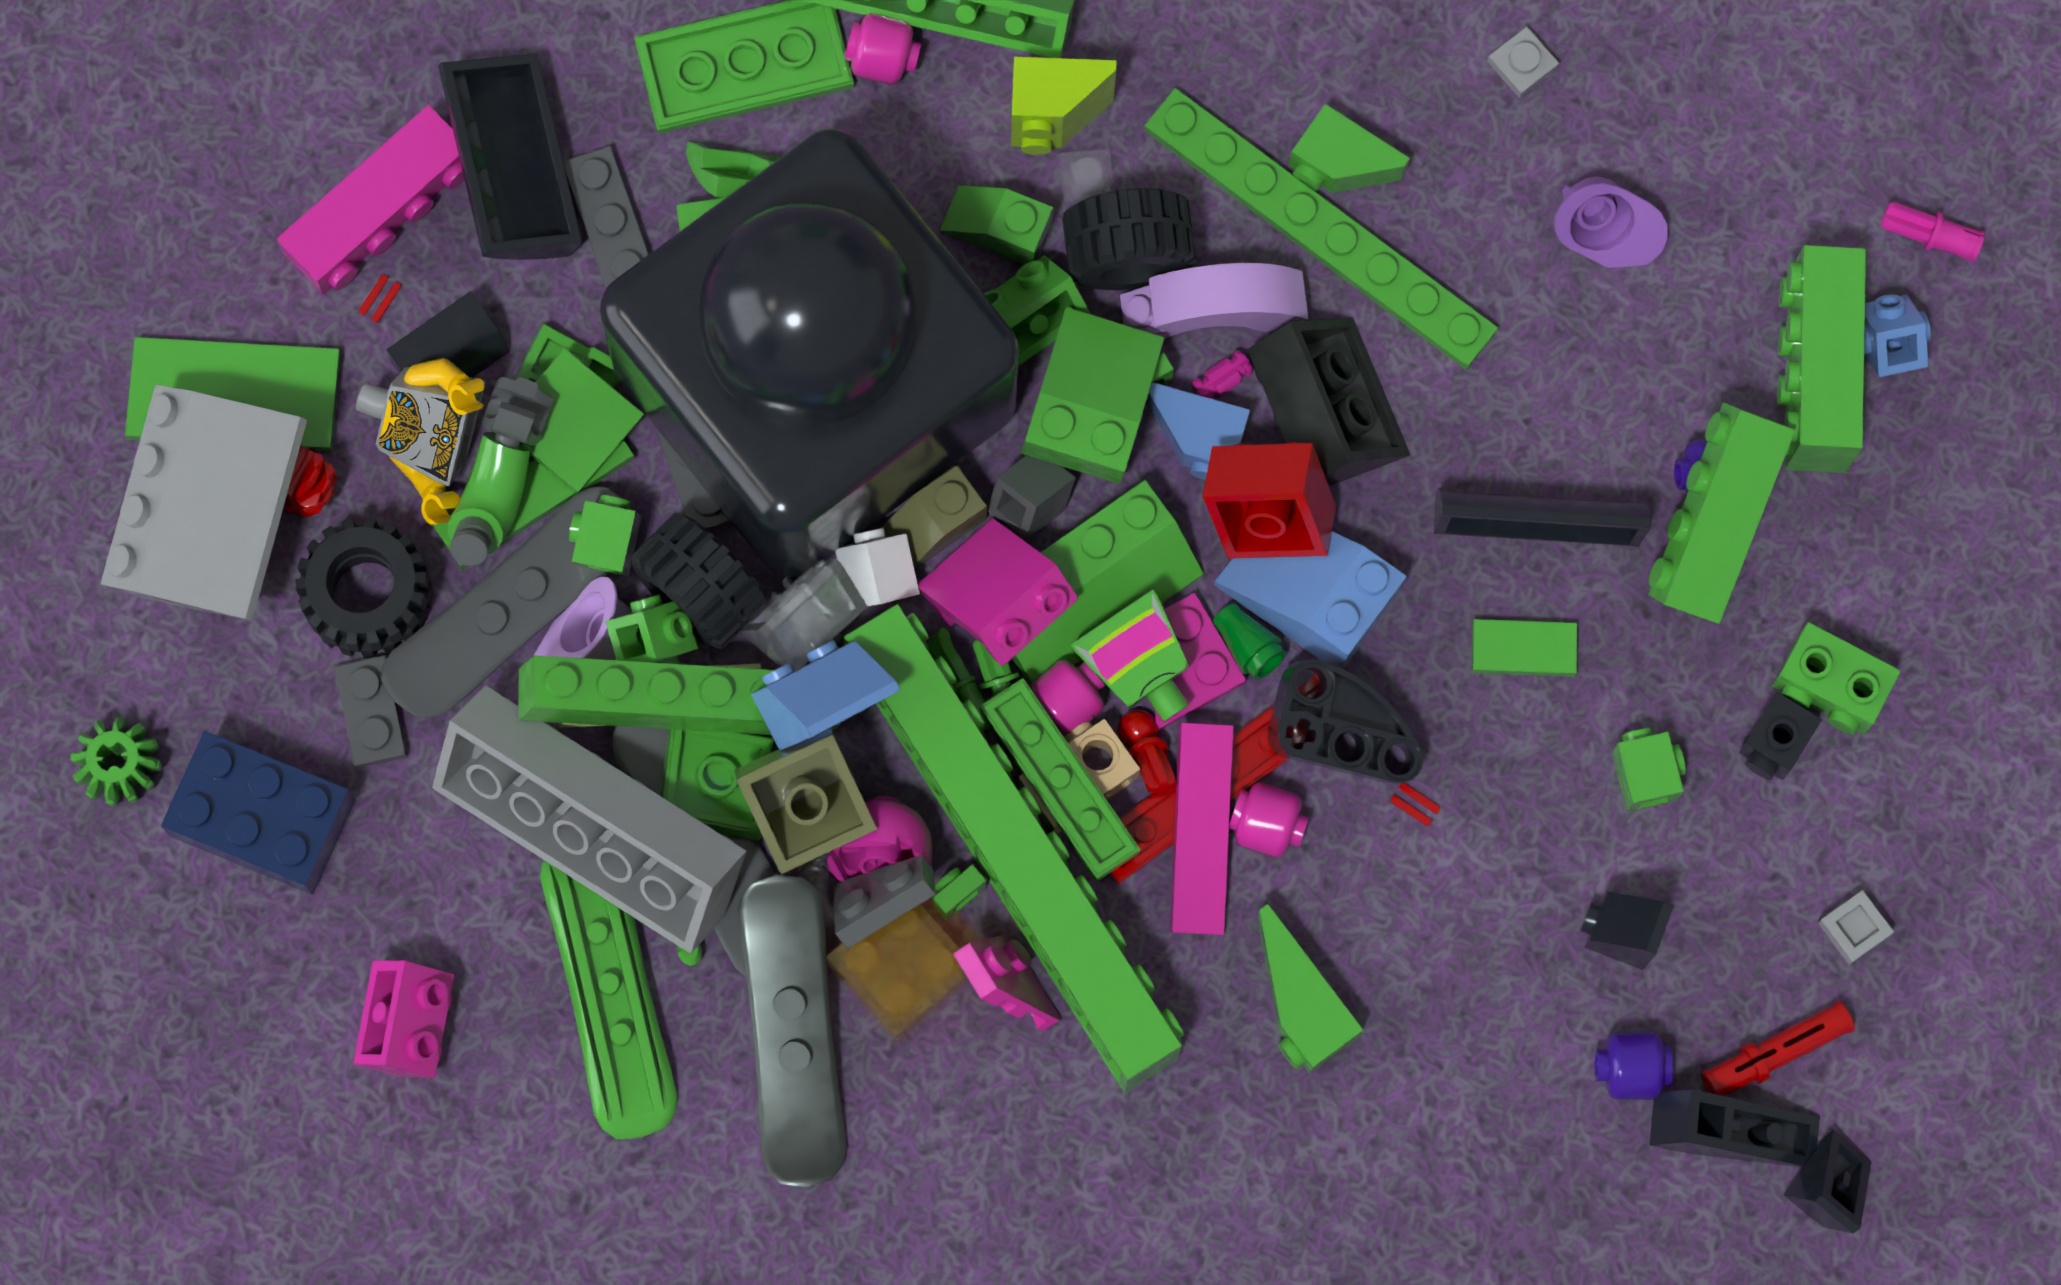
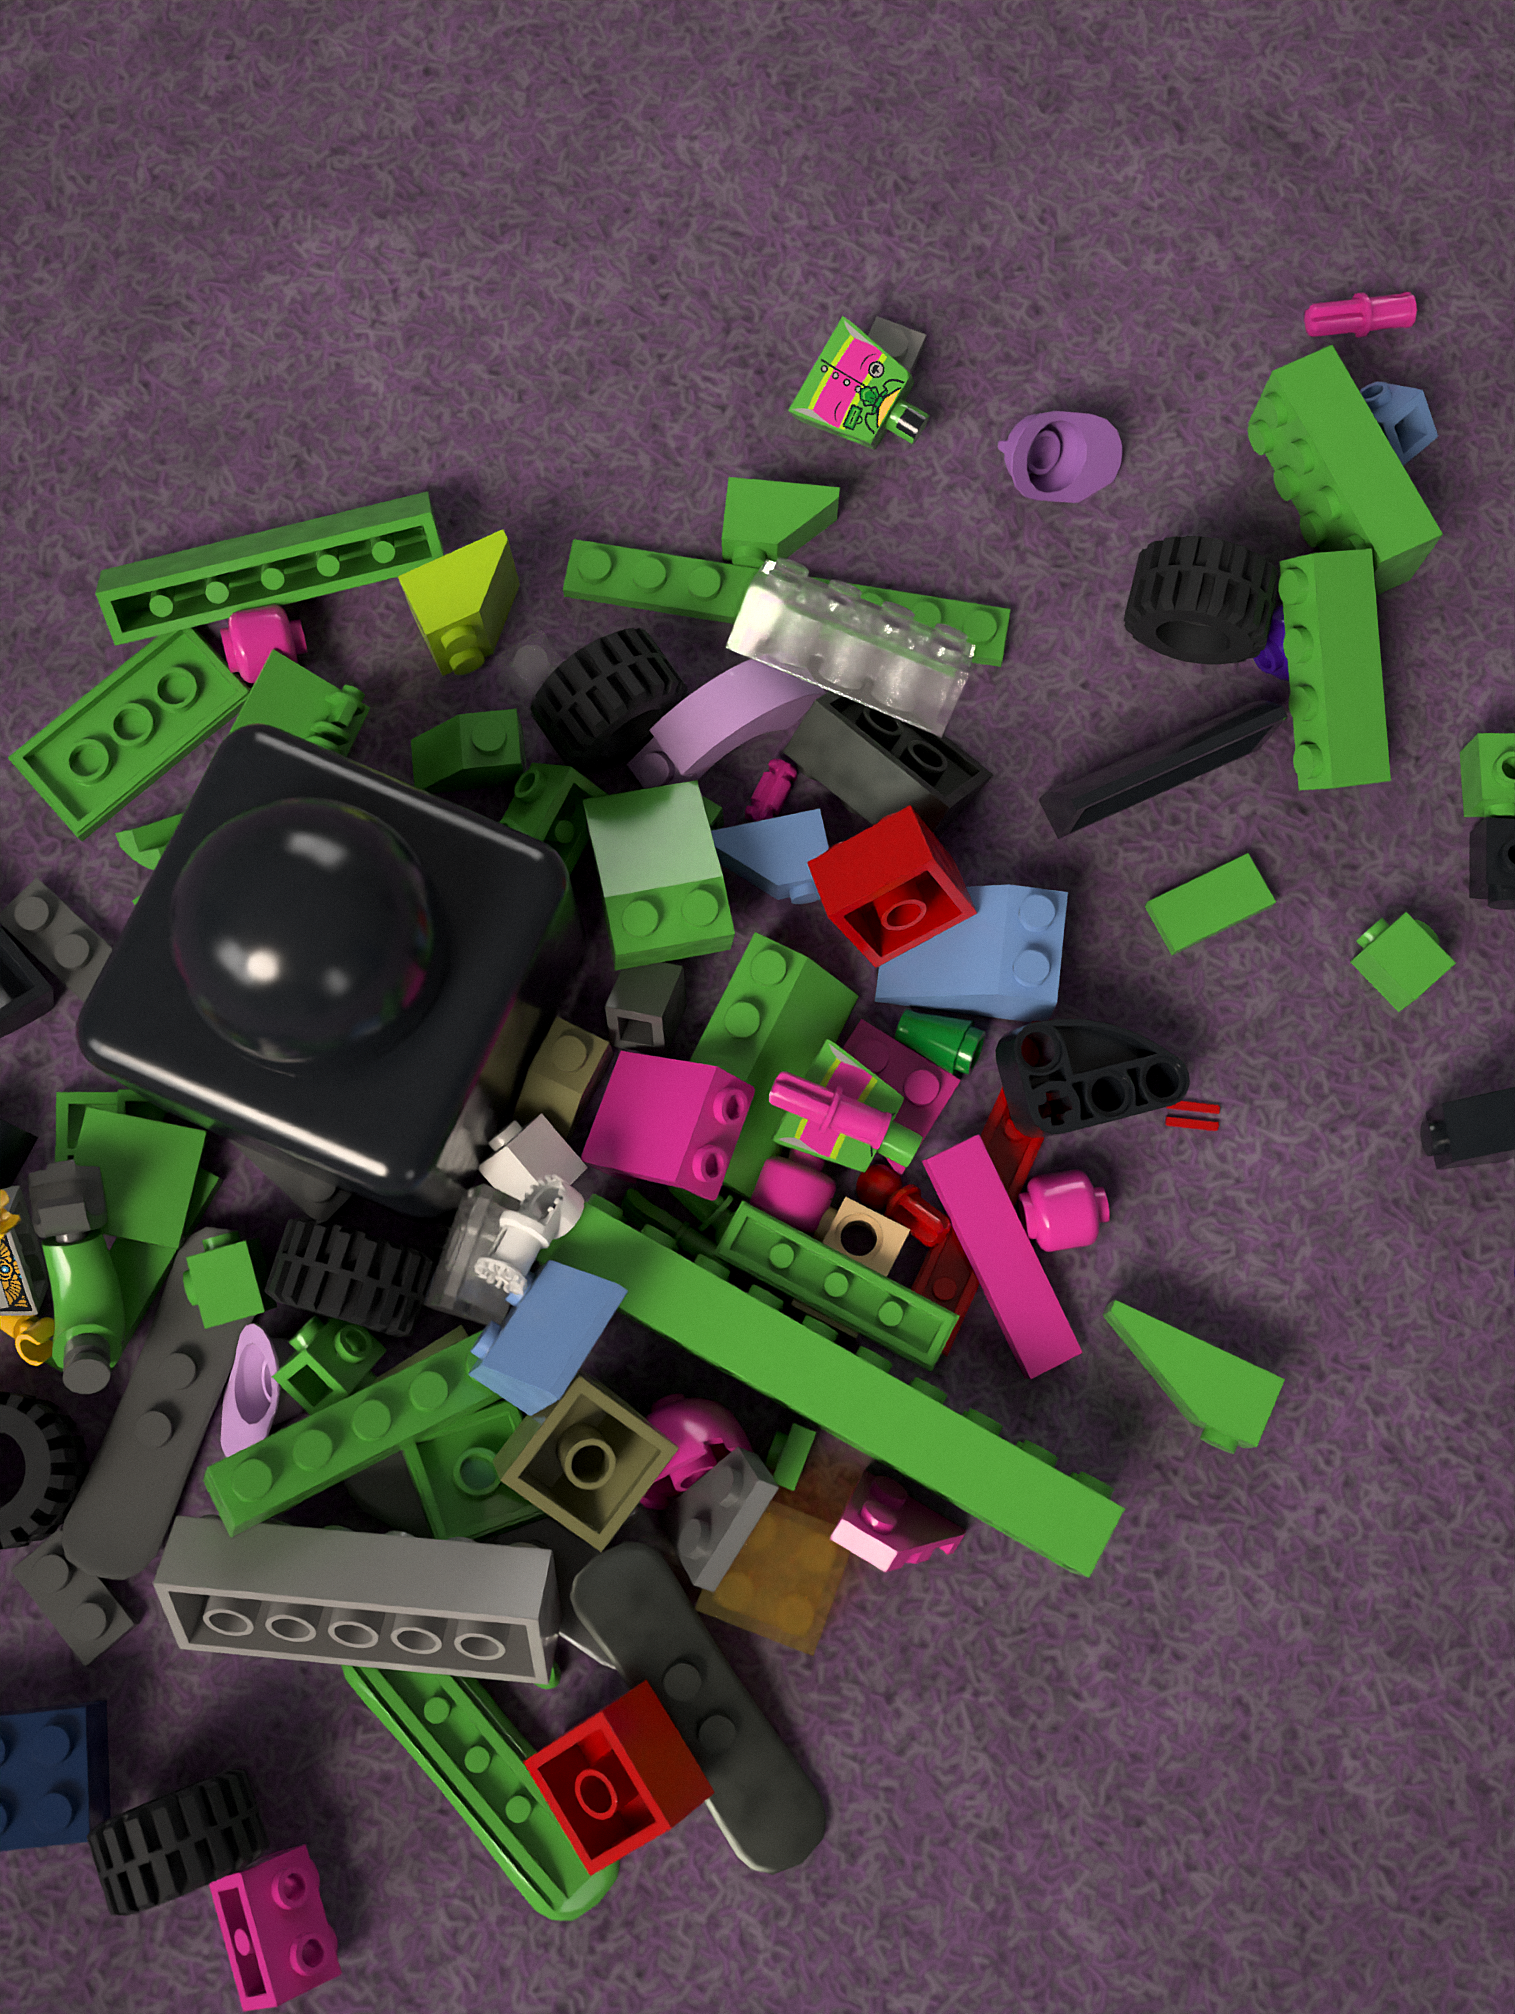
camera: 25 degrees left, 0 degrees up
(369, 917) = (178, 1842): none -> black tyre
(707, 1045) = (619, 1778): none -> red brick
(846, 611) = (529, 1231): none -> white connector
(882, 119) = (304, 705): none -> bright green hinge
(1125, 642) = (830, 1109): none -> dark pink axle
(1345, 293) = (852, 645): none -> clear brick
(1472, 85) = (858, 391): none -> torso
(1646, 401) = (1202, 600): none -> black tyre

